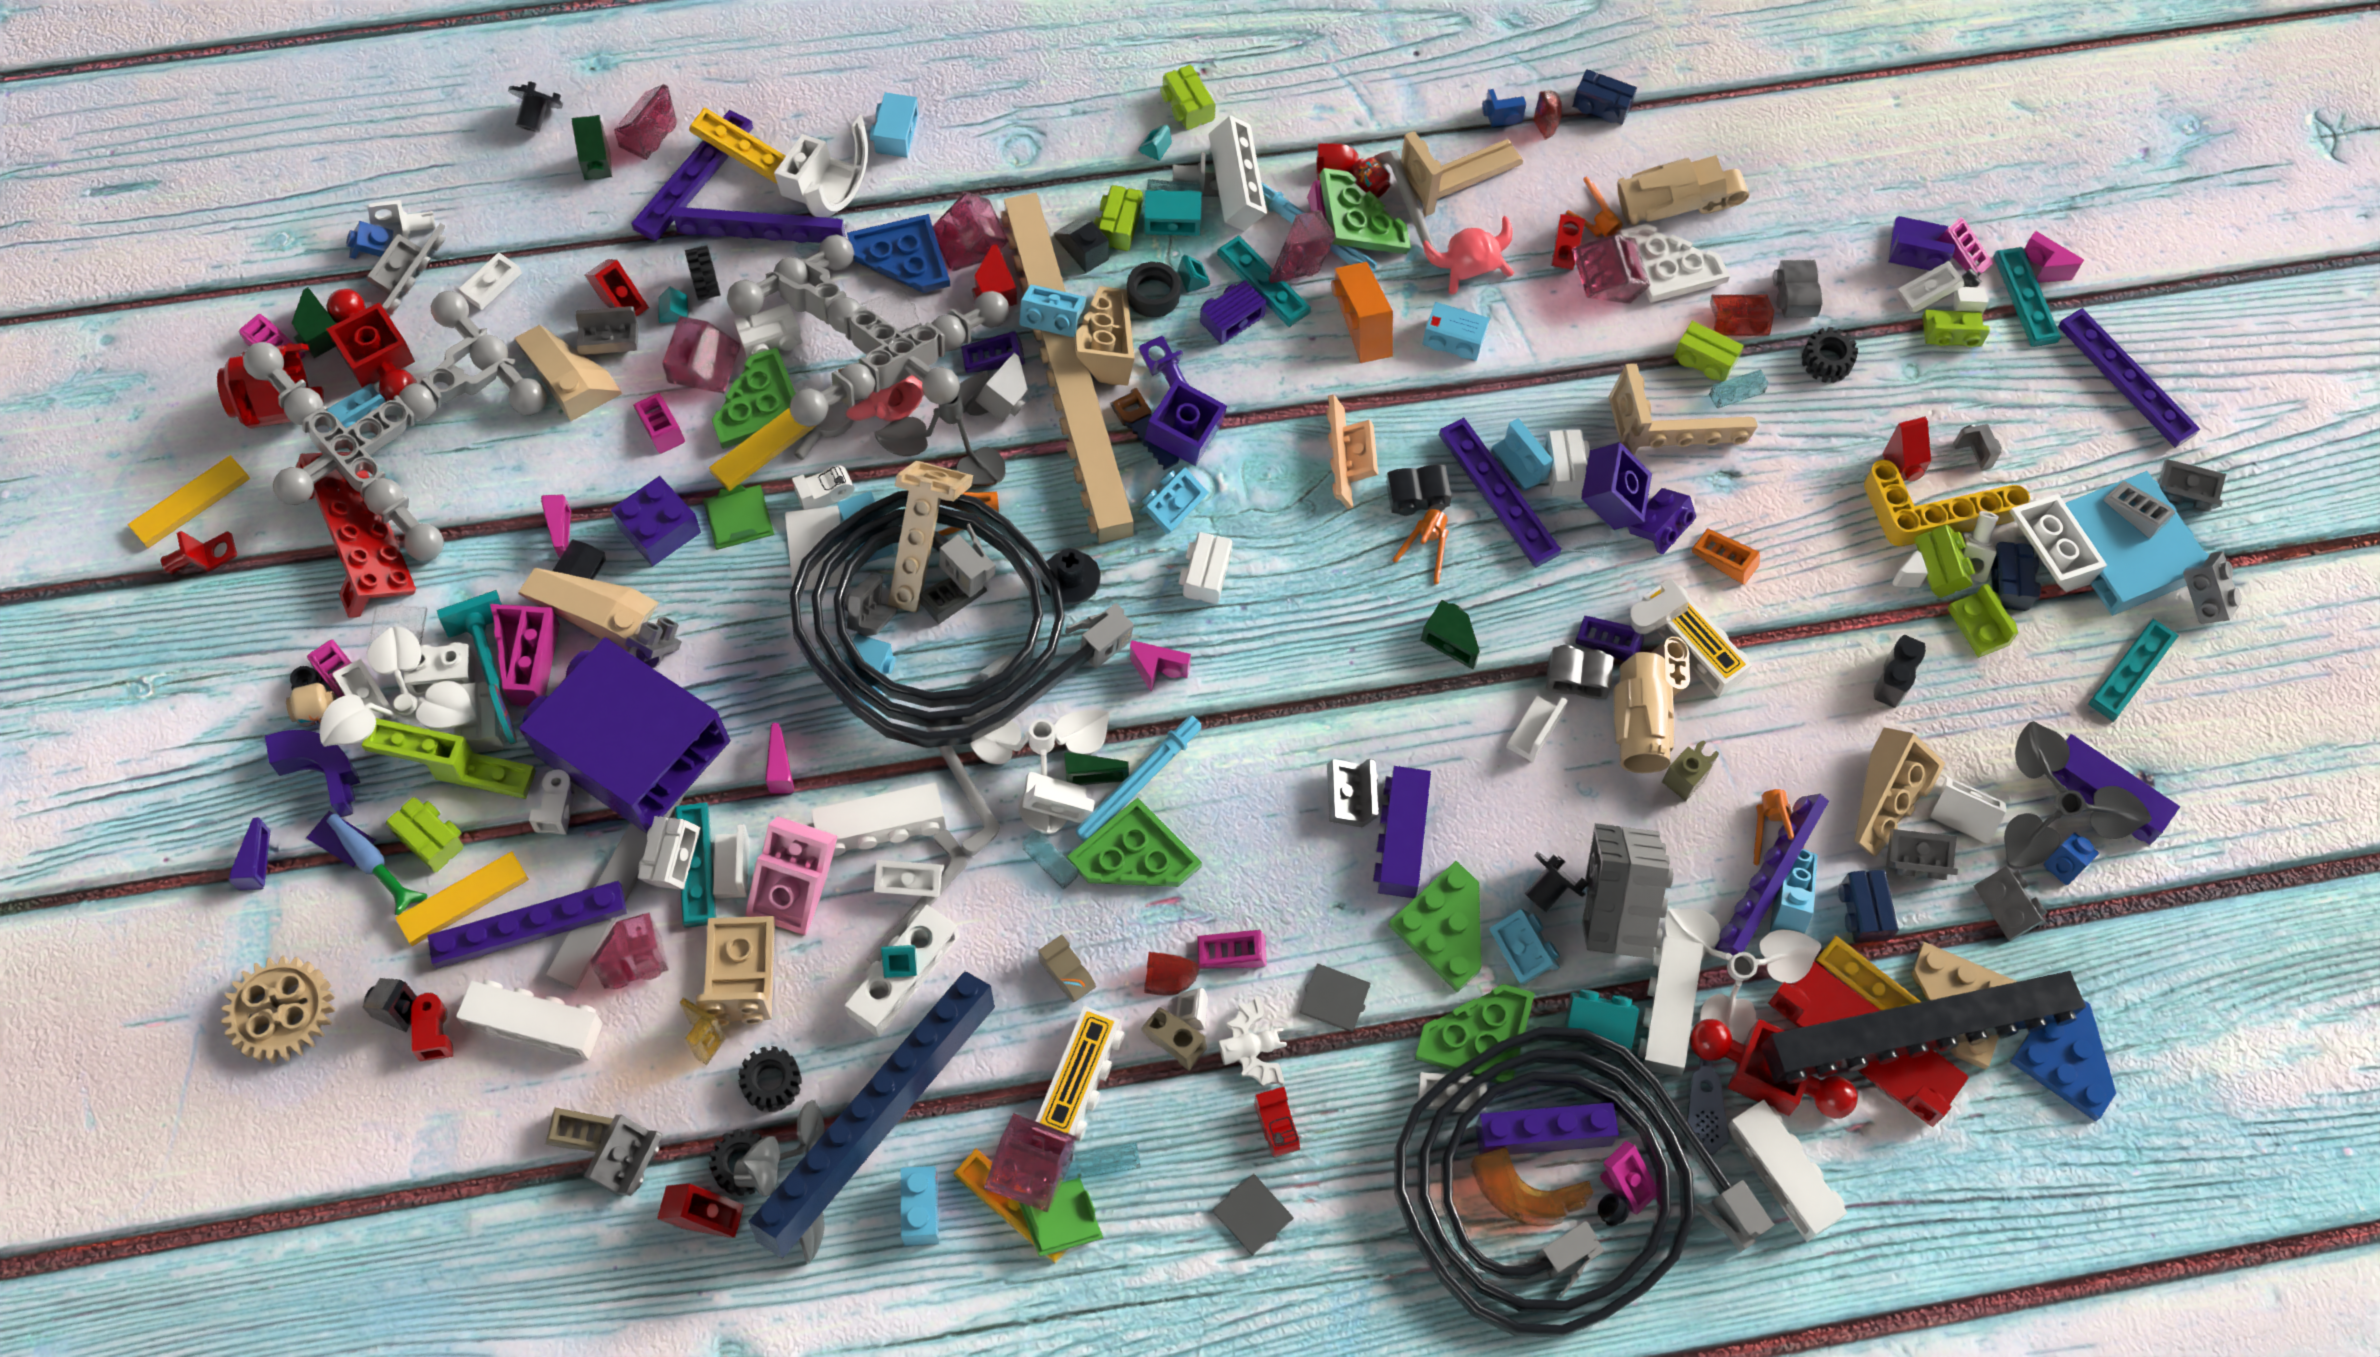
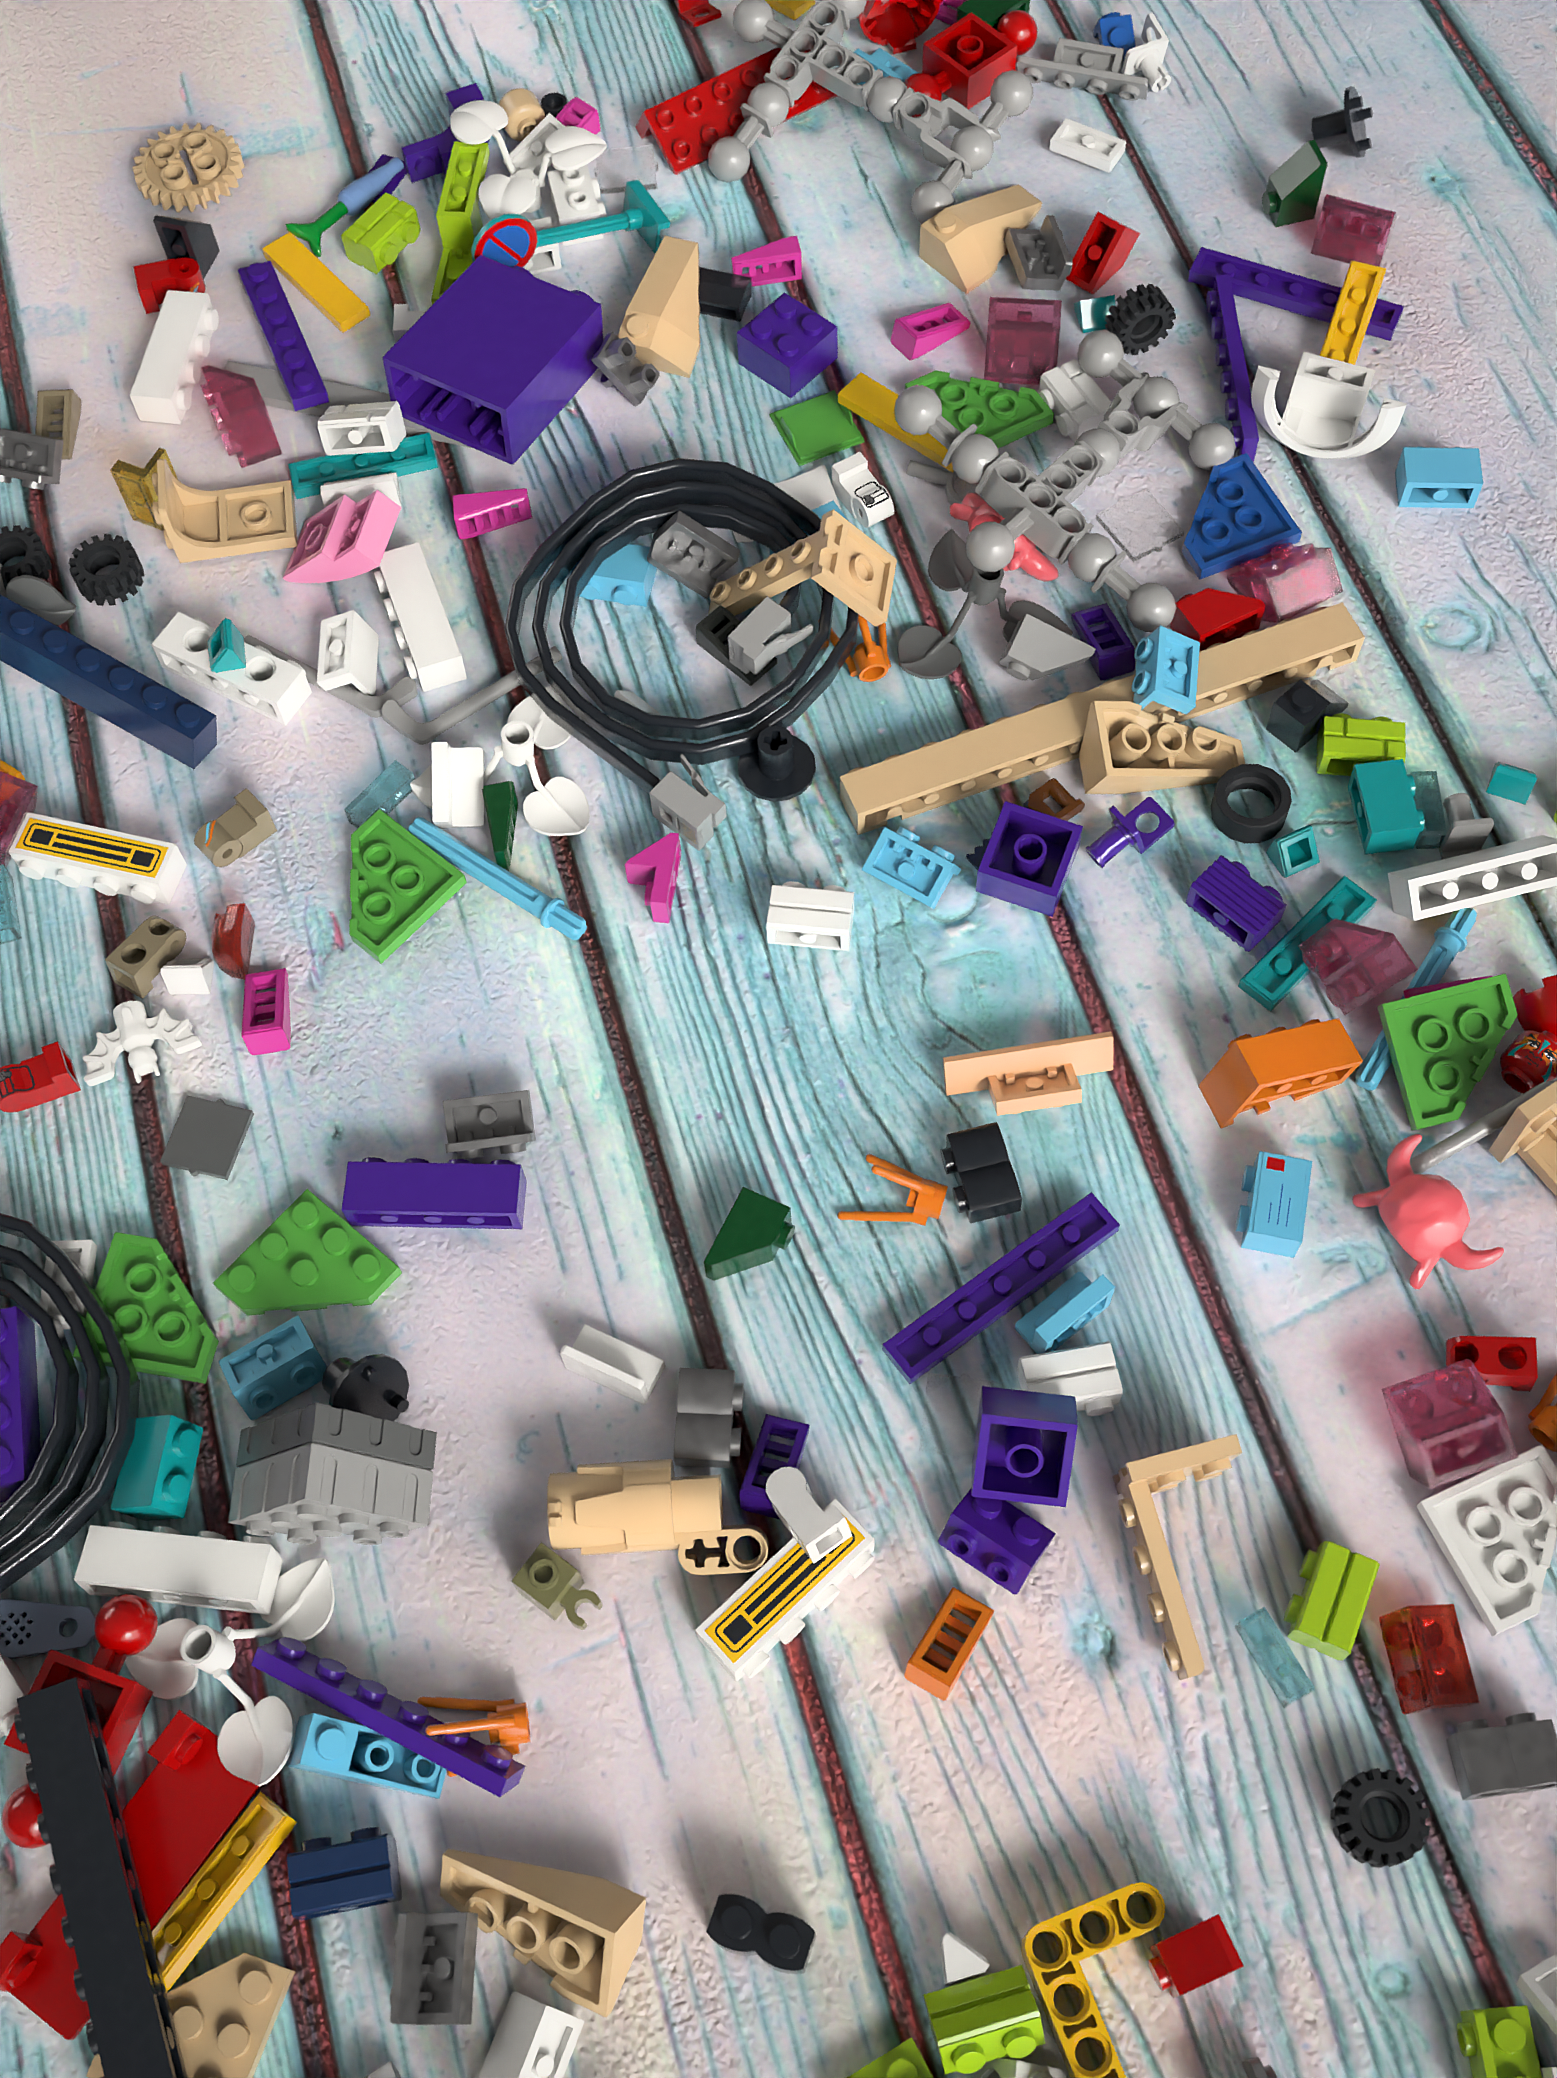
camera: 90 degrees right, 0 degrees up
(251, 861) = (346, 123): dark purple slope -> none
(526, 649) = (600, 263): dark pink wedge -> none

